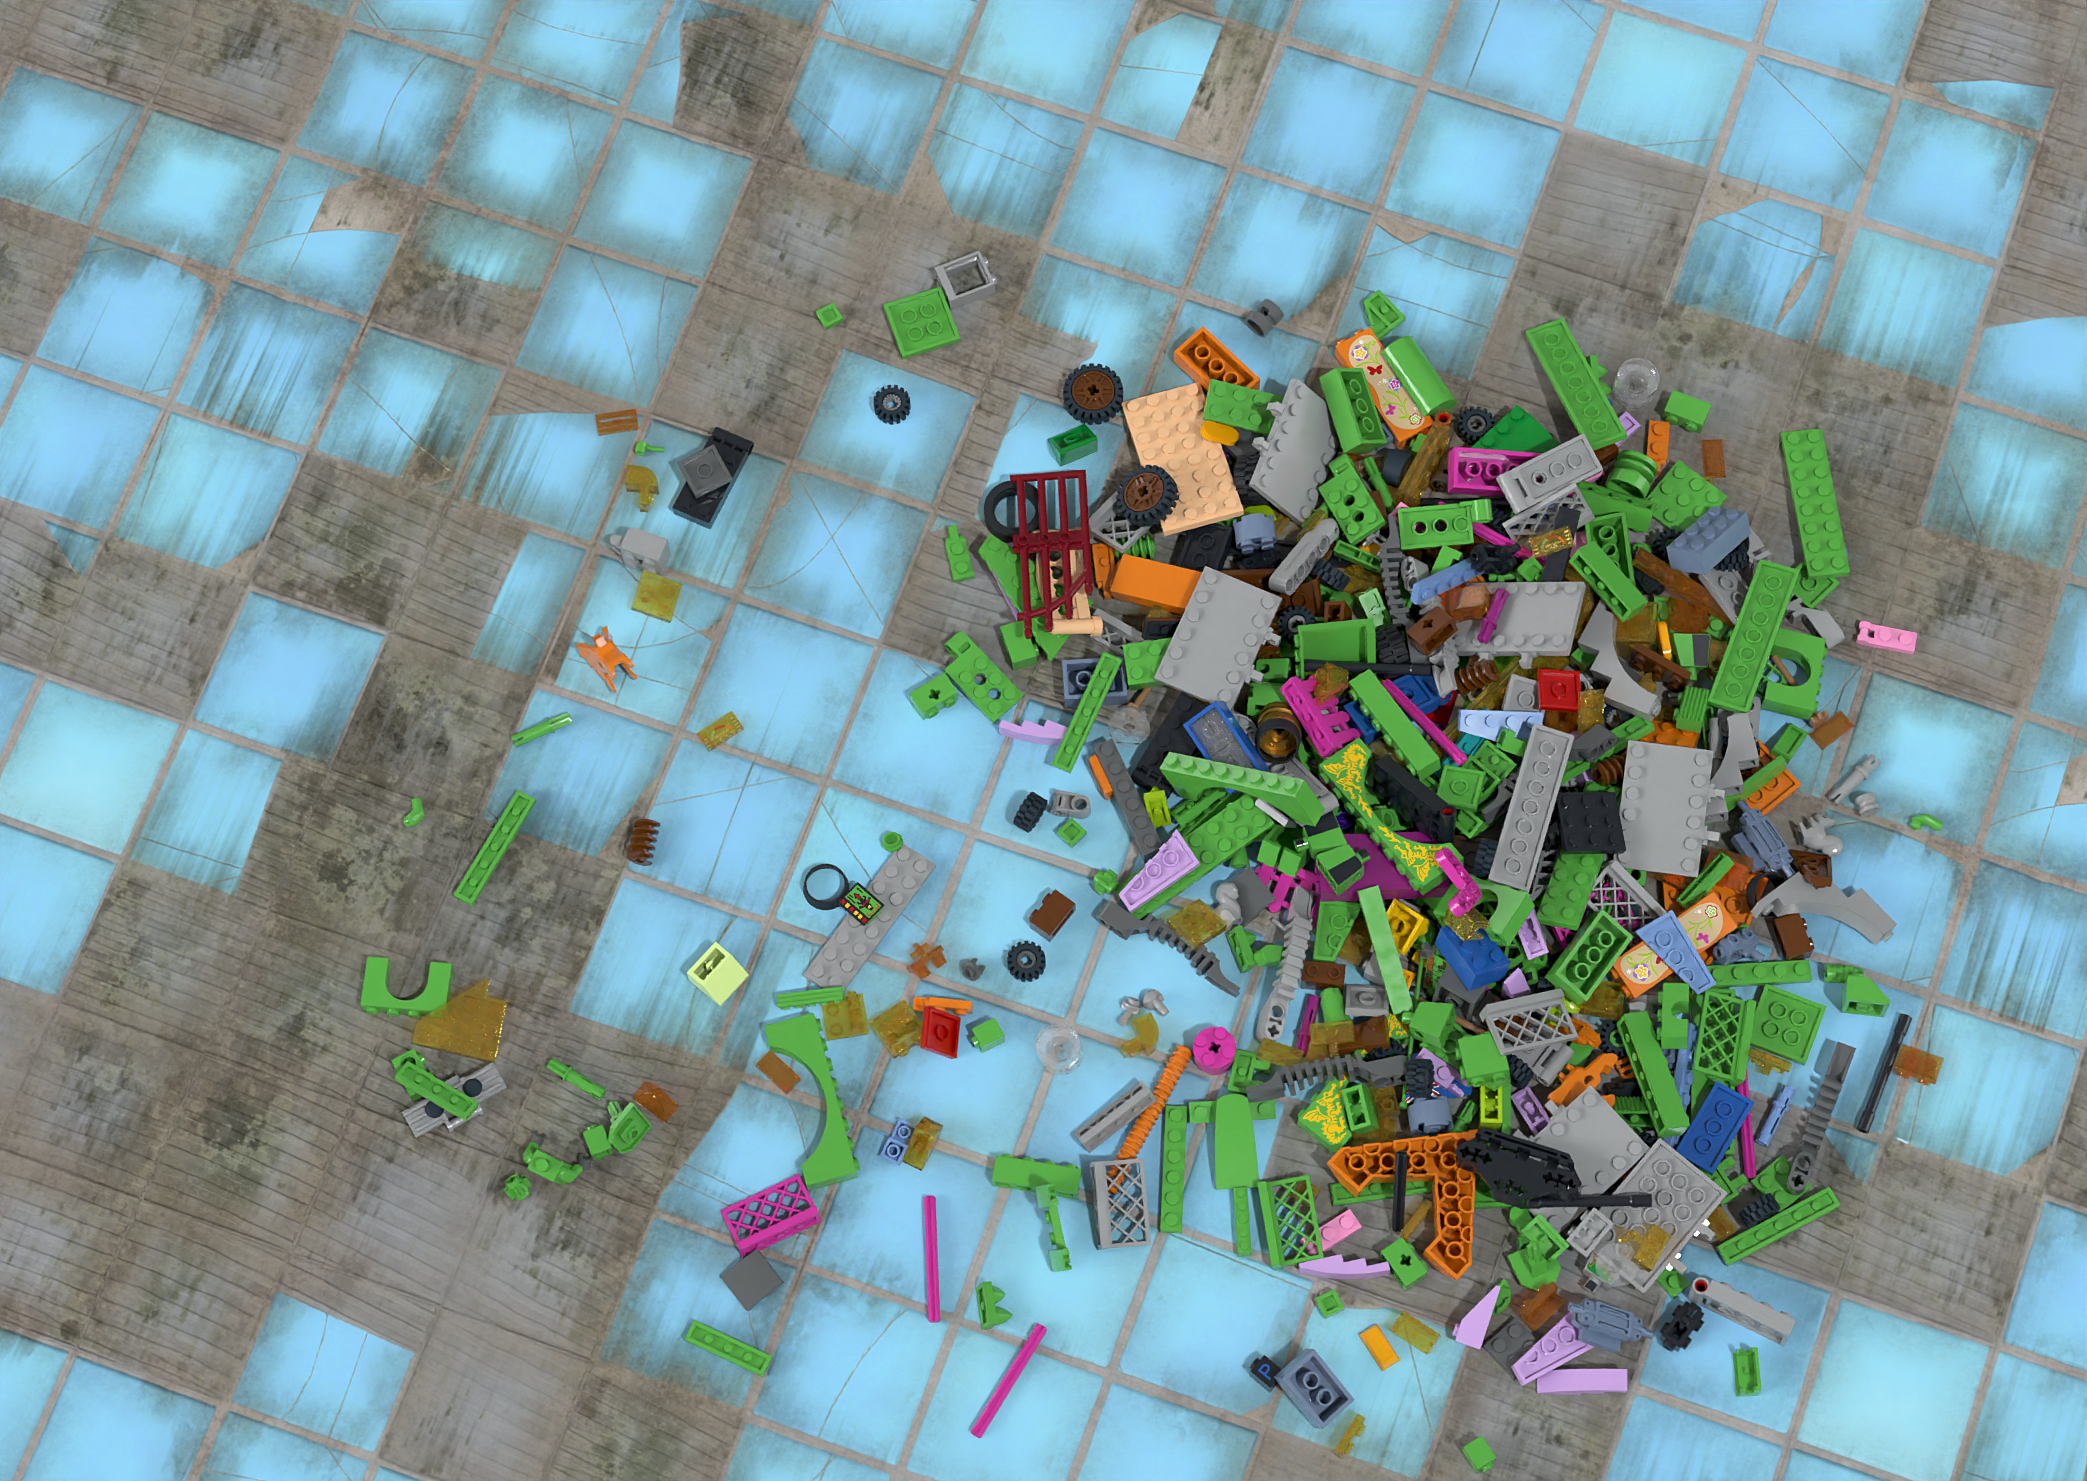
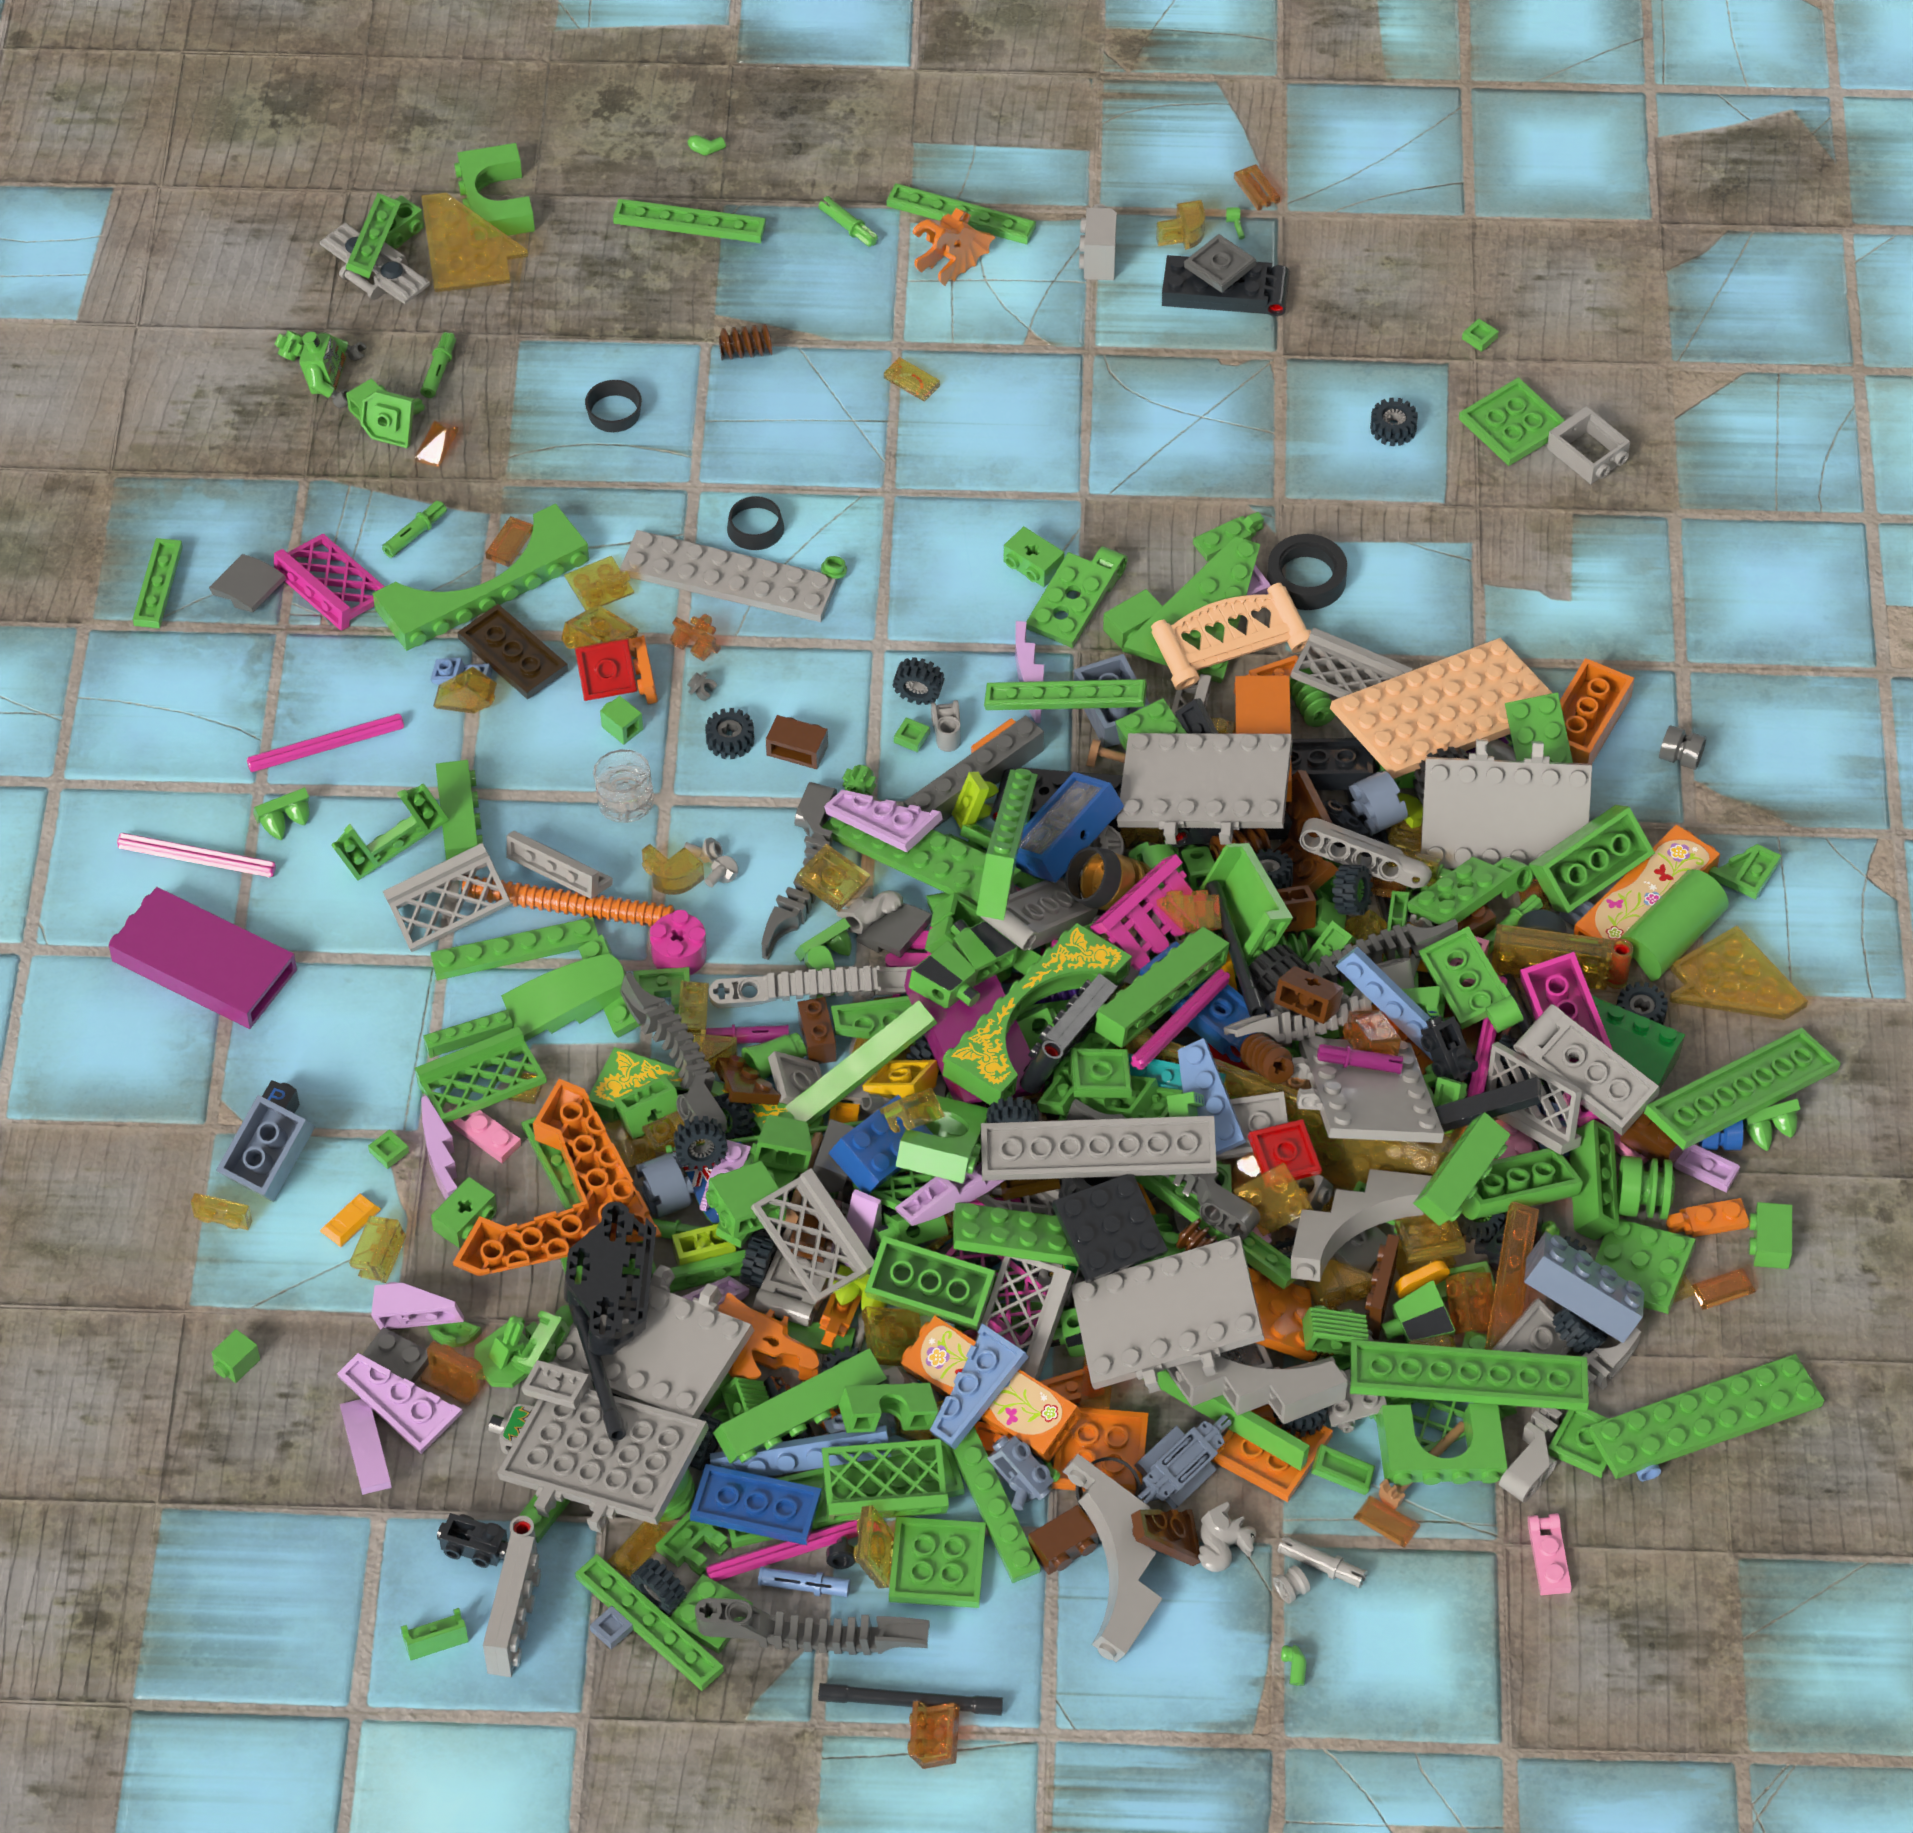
camera: 70 degrees right, 15 degrees down
(561, 644) = (981, 218): none -> bright green tile
(656, 596) = (1051, 273): clear yellow hinge -> none
(667, 938) = (613, 388): none -> black tyre
(717, 974) = (606, 448): yellowish green slope -> none
(743, 1142) = (412, 530): none -> bright green axle
(810, 997) = (608, 541): bright green piece -> none
(861, 904) = (739, 554): piece -> none
(892, 1097) = (512, 651): none -> dark brown plate
(1050, 542) = (1270, 597): dark red piece -> none
(1073, 444) = (1420, 606): green slope -> none
(1089, 407) = (1498, 606): wheel -> none
(1111, 1397) = (202, 957): none -> magenta brick
(1126, 715) = (1080, 753): clear plate -> none
(1147, 495) = (1371, 670): wheel -> none
(1219, 433) = (1495, 729): light orange tile -> none
(1332, 1034) = (733, 1046): clear yellow plate -> none
(1399, 1191) = (550, 1170): black axle -> none
(1416, 1220) = (520, 1208): clear yellow tile -> none
(1468, 892) = (958, 1096): dark pink beam -> none
(1470, 357) = (1735, 978): none -> clear yellow wing
(1551, 542) = (1487, 1089): clear yellow tile -> none
(1604, 1262) = (524, 1441): clear plate -> none
(1606, 1325) = (445, 1443): sand blue piece -> none
(1636, 373) = (1780, 1160): clear wheel -> none
(1649, 1246) = (552, 1448): clear yellow plate -> none
(1706, 880) = (1101, 1407): bright green piece -> none
(1739, 872) = (1127, 1435): clear orange piece -> none
(1763, 1085) = (840, 1554): none -> black tile
(1775, 1252) = (611, 1627): none -> sand blue plate
(1839, 973) = (1034, 1612): bright green hinge -> none
(1863, 997) = (1004, 1633): bright green slope -> none

